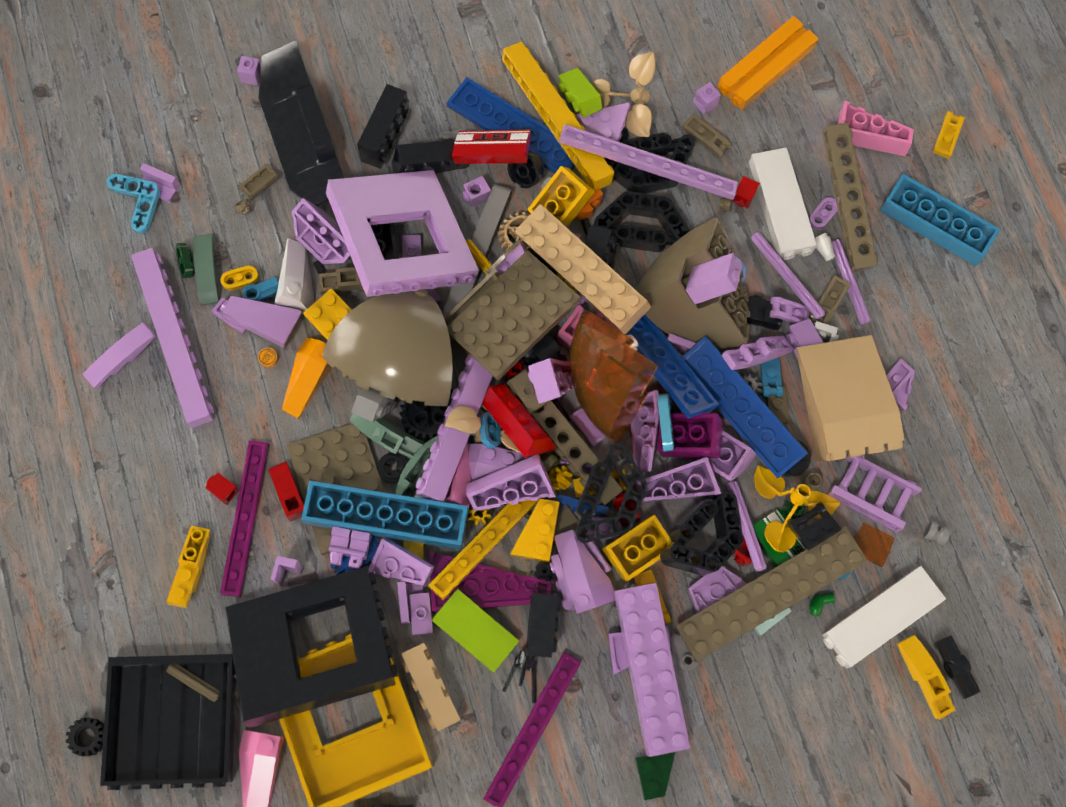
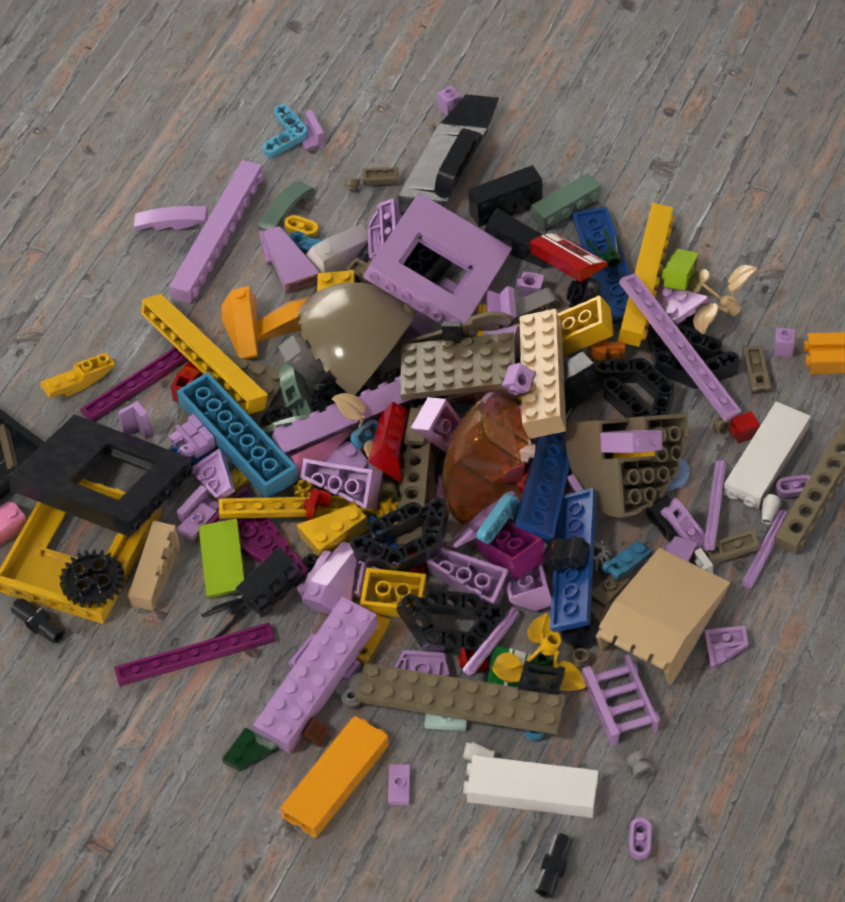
camera: 50 degrees right, 20 degrees down
(183, 256) = (279, 185): dark green plate -> none
(221, 488) = (149, 345): red brick -> none
(268, 357) = (267, 290): light orange tile -> none
(273, 403) = (240, 321): none -> light orange wedge
(281, 462) = (203, 353): none -> yellow brick
(382, 734) = (92, 578): none -> black gear
(432, 96) = (565, 201): none -> sand green brick
(481, 230) = (502, 302): none -> lavender panel
(483, 288) = (452, 331): none -> black plate
(506, 526) = (316, 498): none -> red bracket
(517, 120) = (611, 255): none -> dark green plant
(583, 293) = (518, 379): none -> lavender brick
(692, 714) = (315, 732): none -> copper plate
(739, 408) = (566, 553): none -> black brick
(742, 737) = (335, 776): none -> light orange brick
(756, 353) = (619, 529): lavender slope -> none
(789, 700) = (399, 785): none -> lavender plate
(818, 602) = (497, 739): green arm -> none
(818, 626) = (477, 750): none -> white cone
(874, 544) = (581, 737): clear orange piece -> none
(928, 676) = (519, 851): yellow slope -> none
(990, 590) = (640, 840): none -> lavender plate

